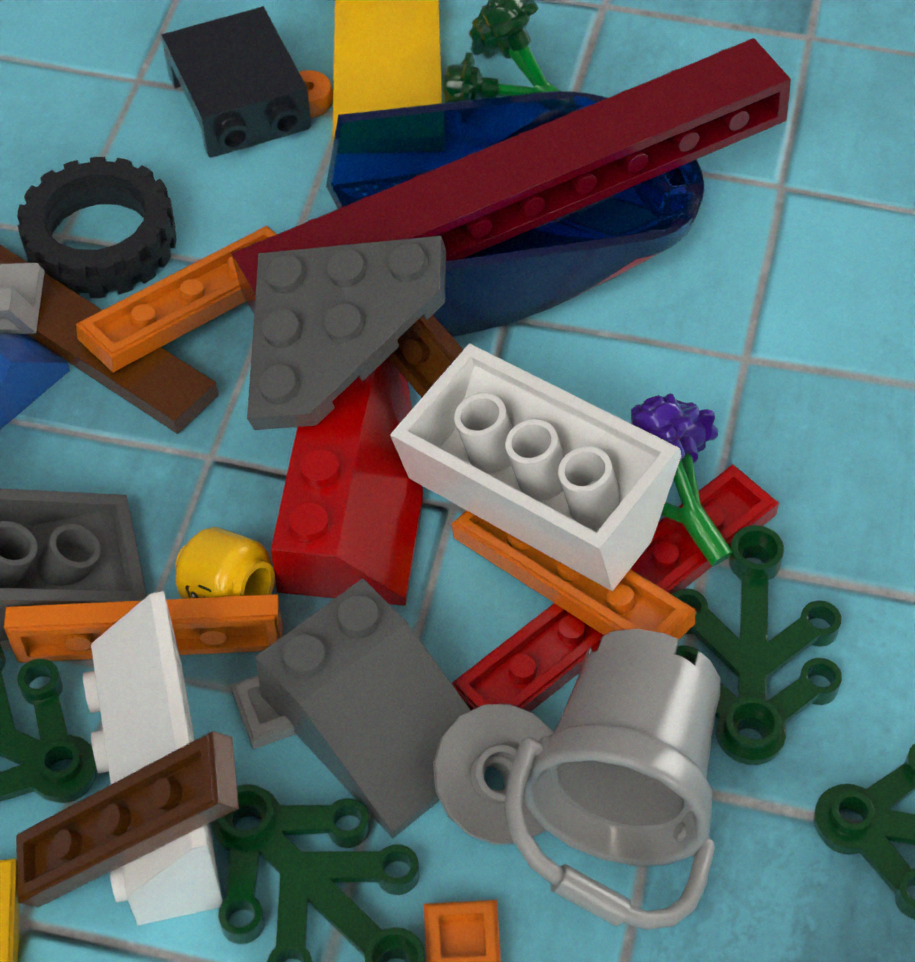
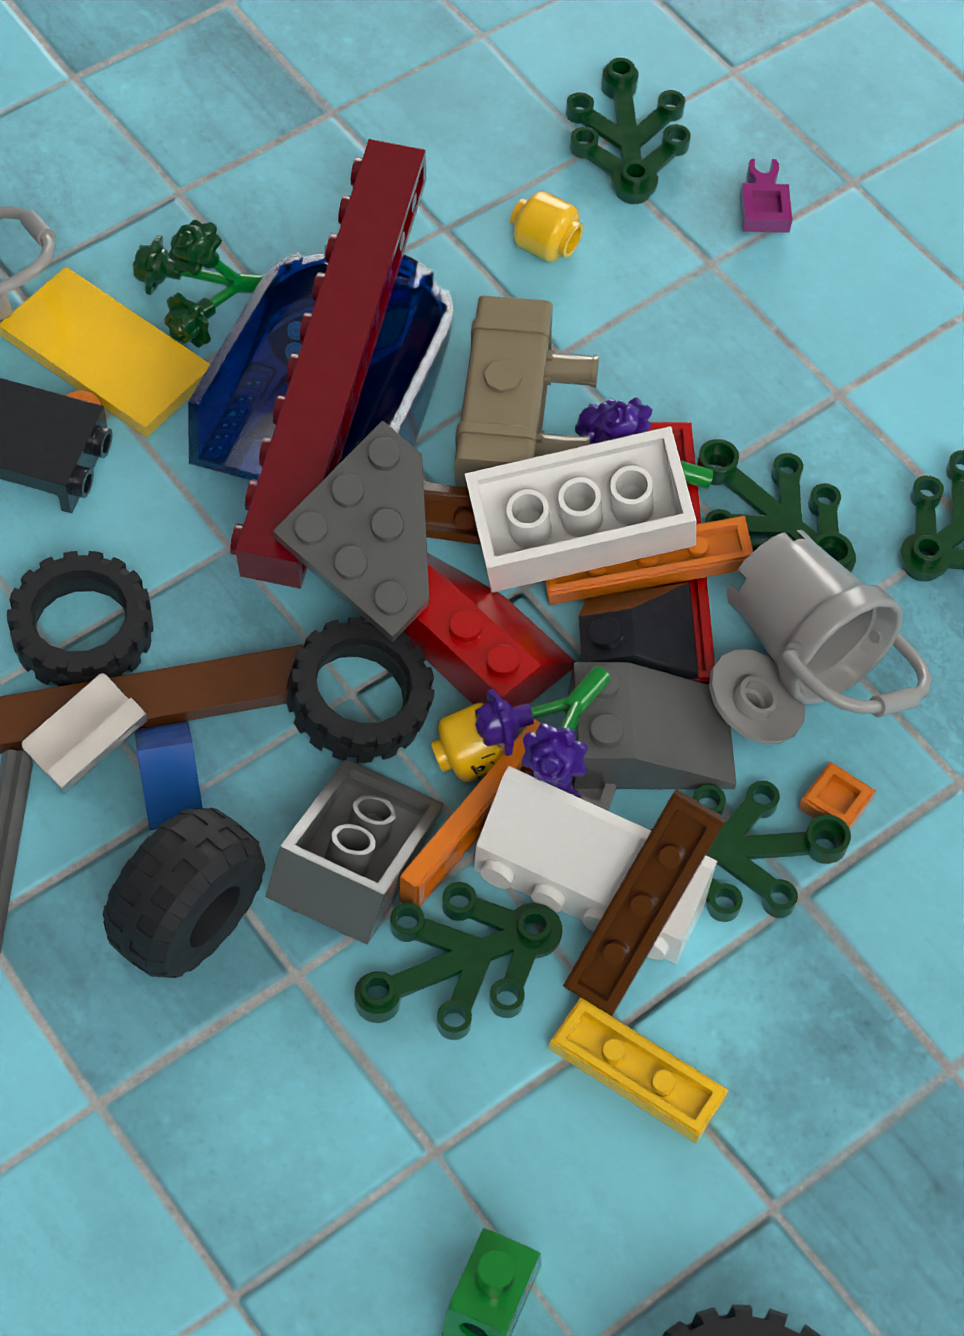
camera: 55 degrees left, 5 degrees up
(166, 308) = (211, 612): orange tile -> none
(188, 608) = (550, 750): none -> dark purple plant
(194, 509) = (343, 735): none -> black tyre
(474, 619) = (642, 628): none -> black slope
(633, 327) = (508, 385): none -> dark tan piece
(864, 245) = (546, 226): none -> yellow head

